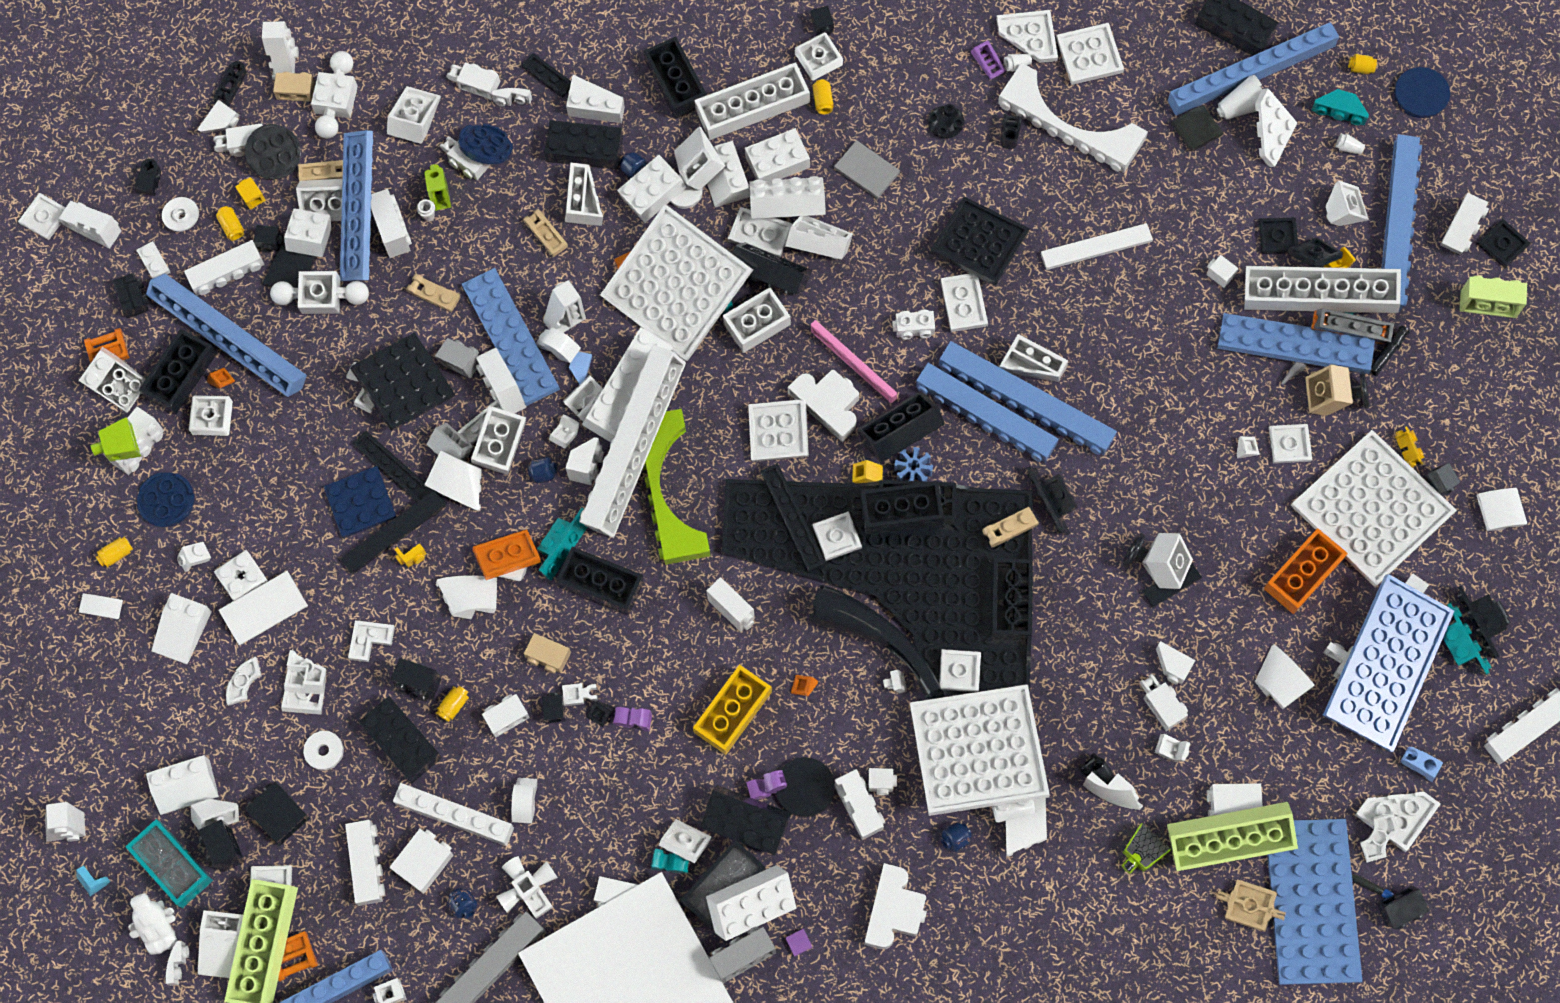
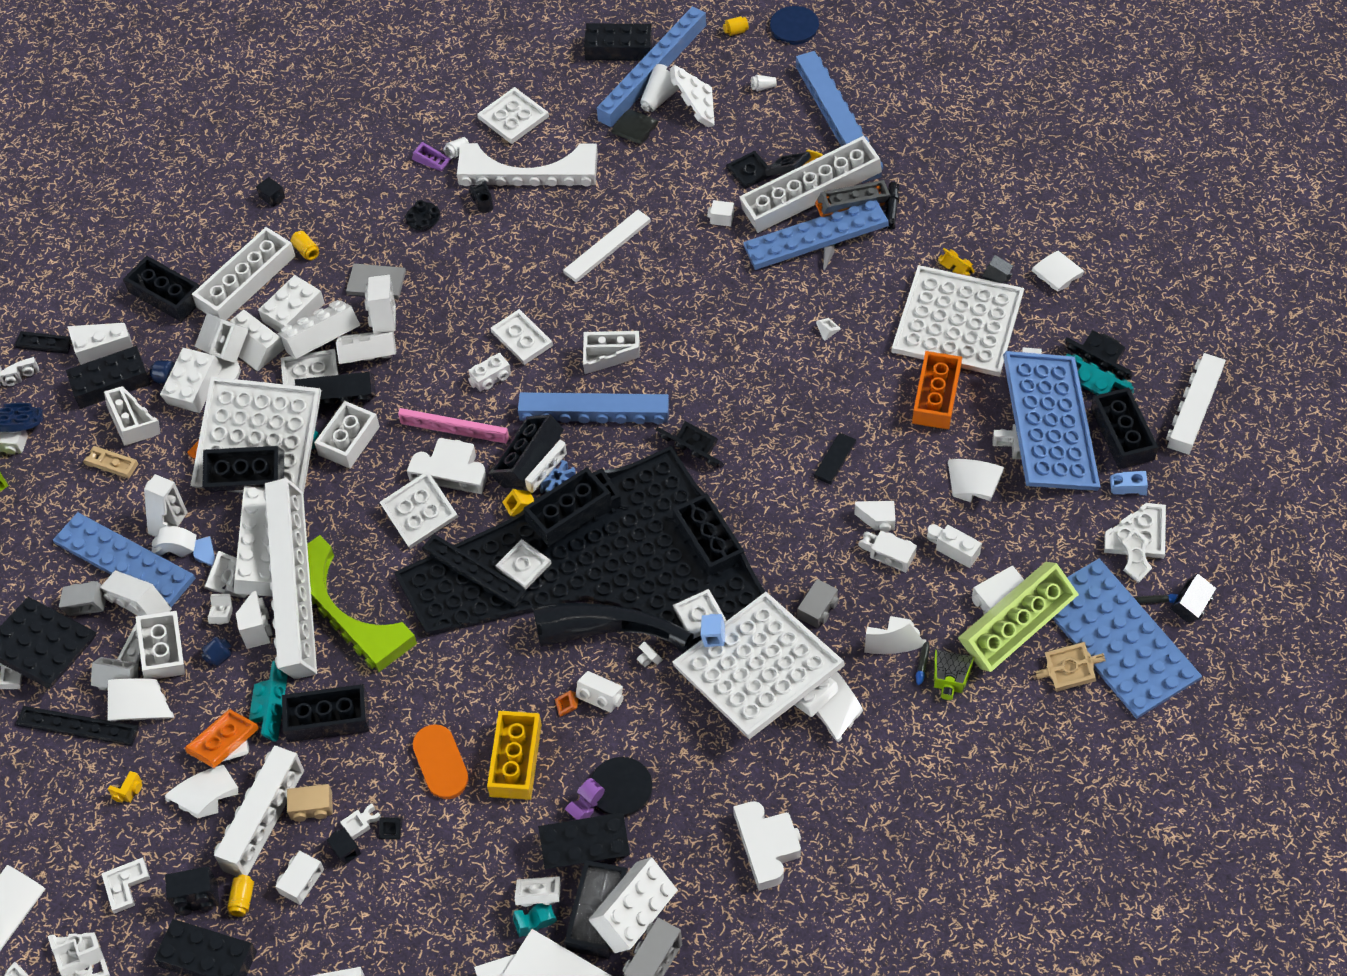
camera: 30 degrees left, 15 degrees down
(360, 502) = (50, 770): dark blue plate -> none
(393, 532) = (98, 778): black tile -> none
(433, 293) = (28, 561): tan plate -> none
(501, 640) = (258, 812): none -> white brick
(524, 800) = (360, 942): white brick -> none
(630, 717) = (419, 816): medium lavender leg -> none
(649, 309) = (239, 467): none -> black brick
(671, 677) = (440, 761): none -> orange tile
(731, 605) = (460, 668): white brick -> none
(798, 942) = (697, 922): medium lavender tile -> none
(825, 49) = (283, 217): white brick -> none
(834, 693) = (599, 691): none -> white brick
(854, 203) = (380, 304): none -> white brick
(859, 804) = (678, 770): white wedge -> none
(881, 781) = (687, 742): white brick -> none
(907, 453) = (546, 465): none -> white tile
(956, 837) = (783, 751): dark blue head -> none
(958, 696) = (713, 630): none -> light blue brick
(979, 241) = (506, 285): black plate -> none
(1010, 526) = (671, 480): tan plate -> none
(1027, 398) = (623, 379): medium blue brick -> none
(1030, 33) = (454, 123): white plate -> none
(1068, 718) = (818, 603): none -> light grey brick
(1098, 767) = (861, 627): black piece -> none
(1116, 835) = (922, 663): none -> pearl dark grey piece
(1165, 559) = (817, 439): white piece -> none
(1172, 748) = (921, 581): white bracket -> none
(1224, 731) = (955, 544): none -> white brick
(1290, 443) = (860, 308): white tile -> none
(1332, 390) = (867, 250): tan piece -> none
(1341, 106) = (739, 59): teal slope -> none
(1345, 205) = (788, 124): white slope -> none
(1453, 707) = (1124, 428): none -> black brick
(1465, 224) = (889, 91): white wedge -> none
(1493, 297) = (946, 128): yellowish green brick -> none
(1503, 243) = (927, 94): black tile -> none

